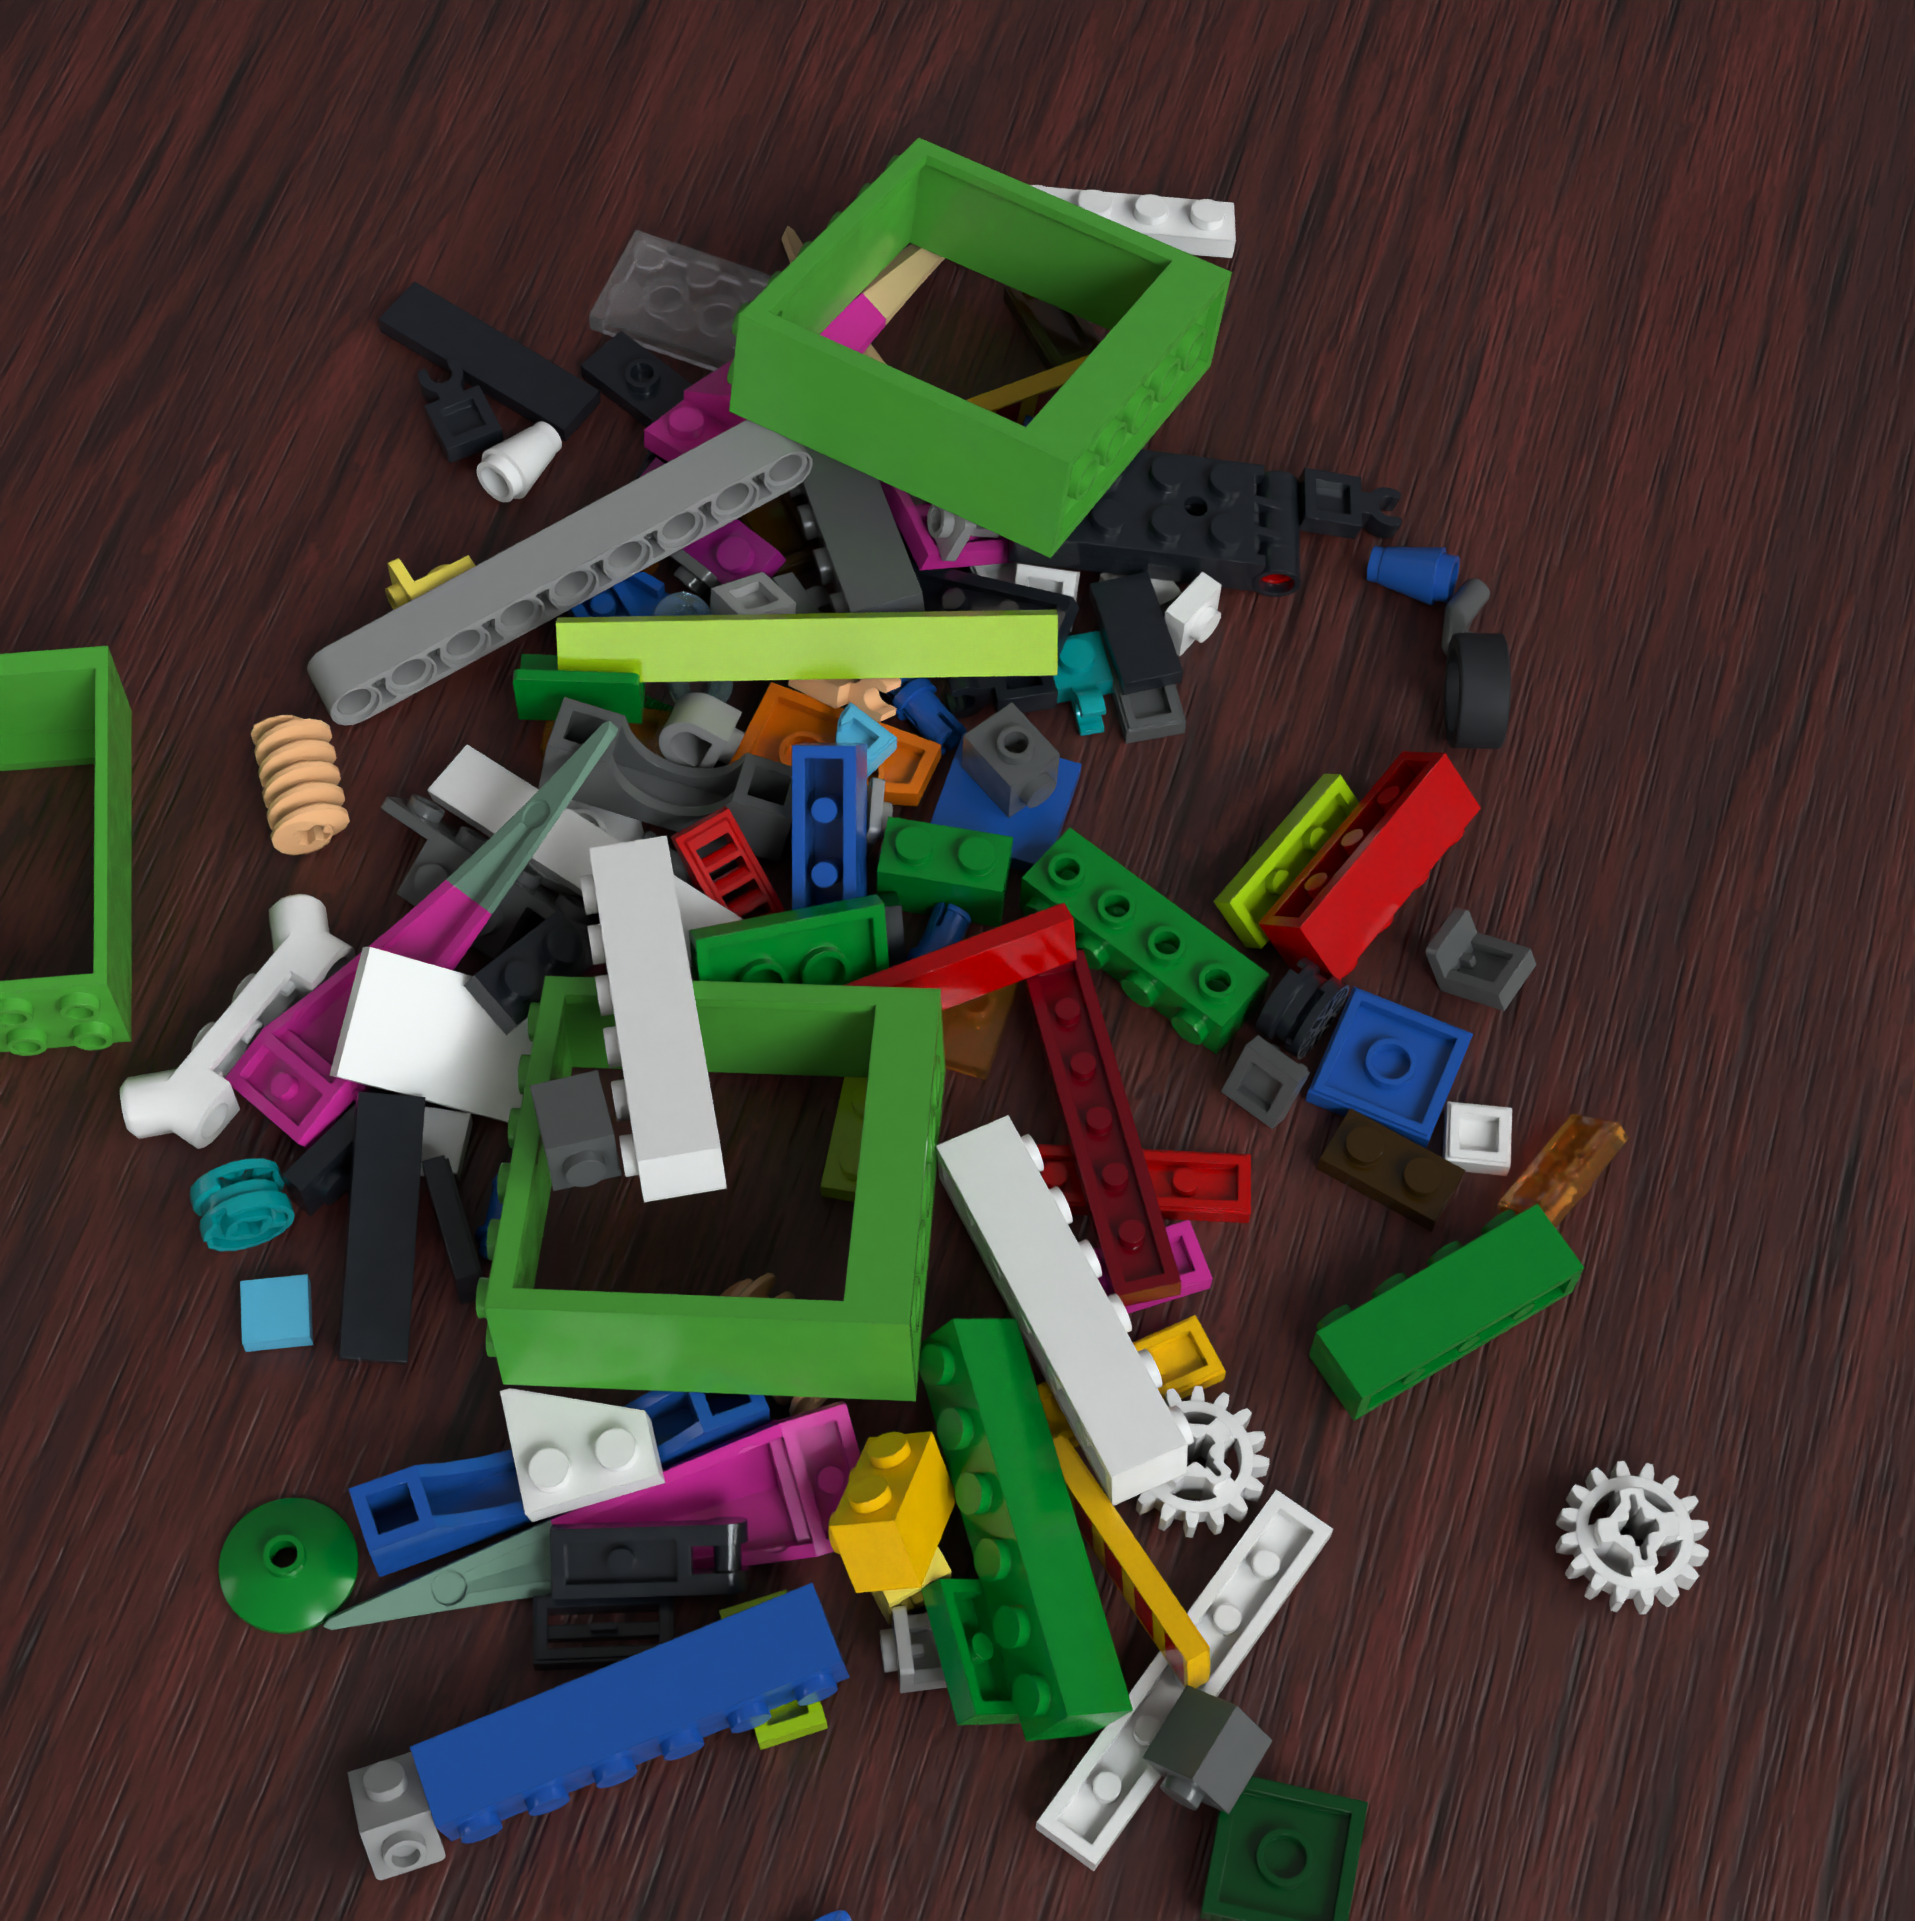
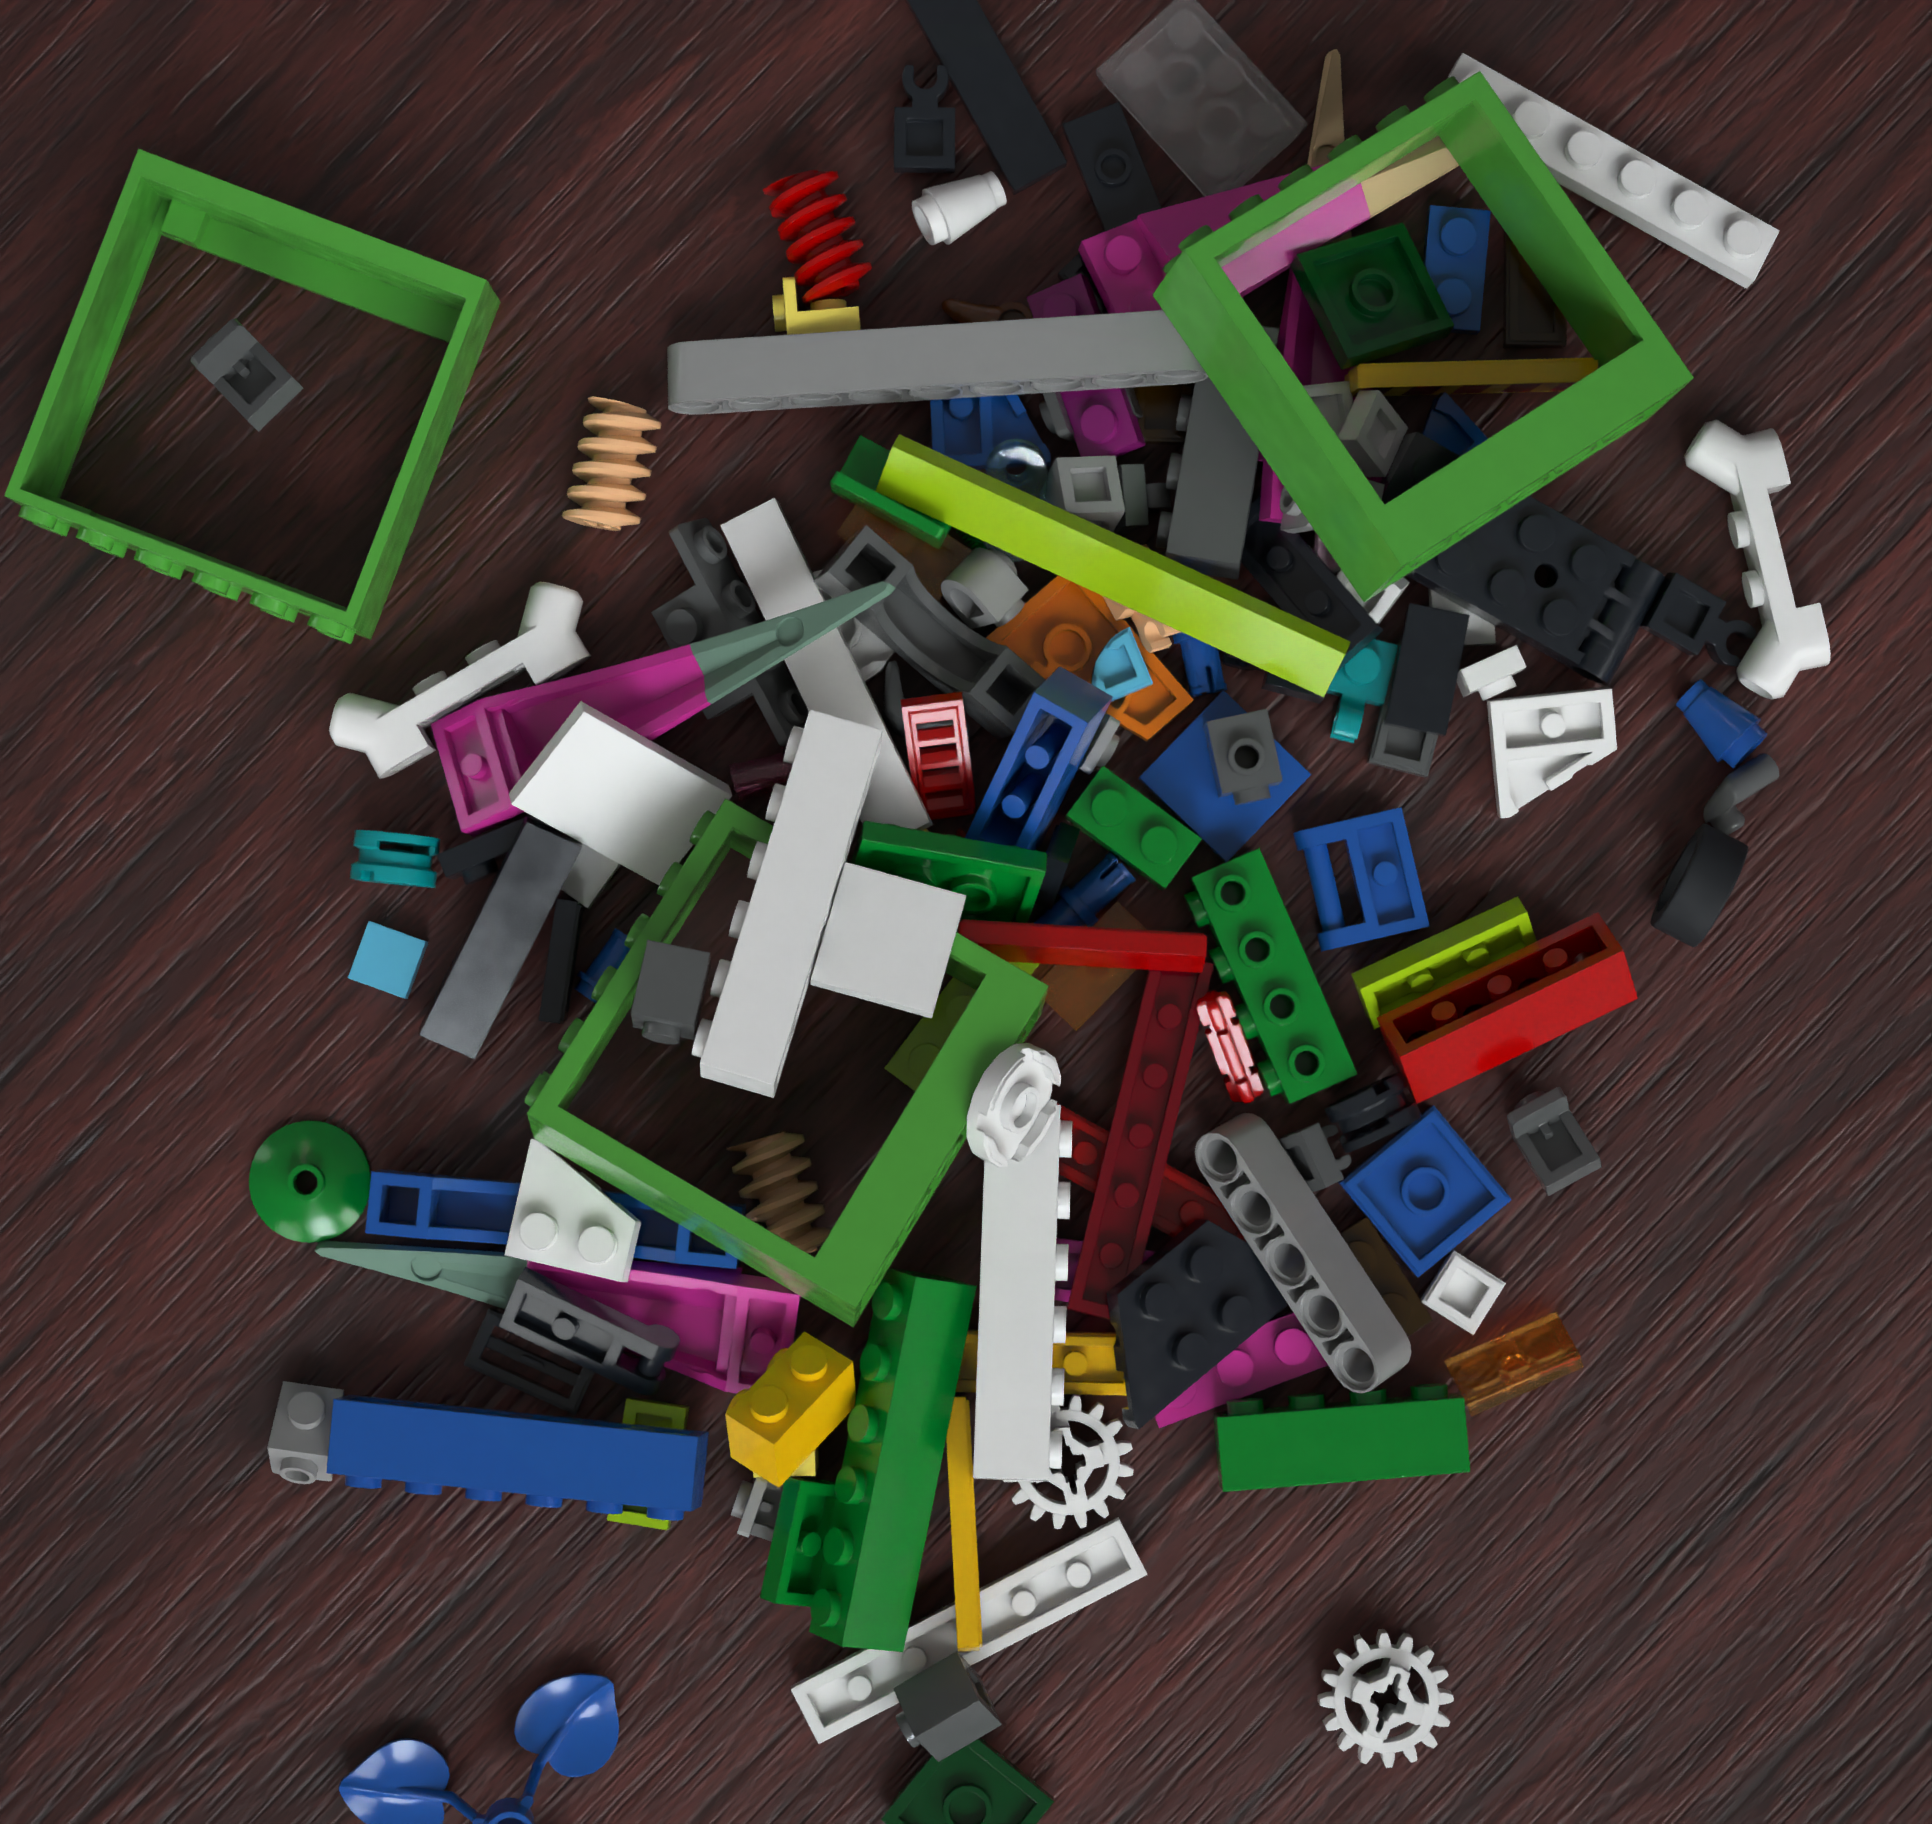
camera: 30 degrees right, 25 degrees up
(401, 522) = (816, 235): none -> red piece
(518, 974) = (725, 768): black plate -> none
(766, 1012) = (888, 940): none -> white tile
(937, 358) = (1372, 295): none -> dark green plate
(962, 1110) = (1013, 1104): none -> white tile
(978, 339) = (1457, 261): none -> blue plate
(1138, 1013) = (1229, 1046): none -> axle
(1191, 815) = (1381, 874): none -> blue plate
(1236, 1250) = (1186, 1314): none -> black wing
(1272, 649) = (1546, 740): none -> white wing
(1285, 1319) = (1265, 1359): none -> dark pink plate
(1340, 1151) = (1303, 1252): none -> light grey beam
(1427, 475) = (1750, 471): none -> white plate

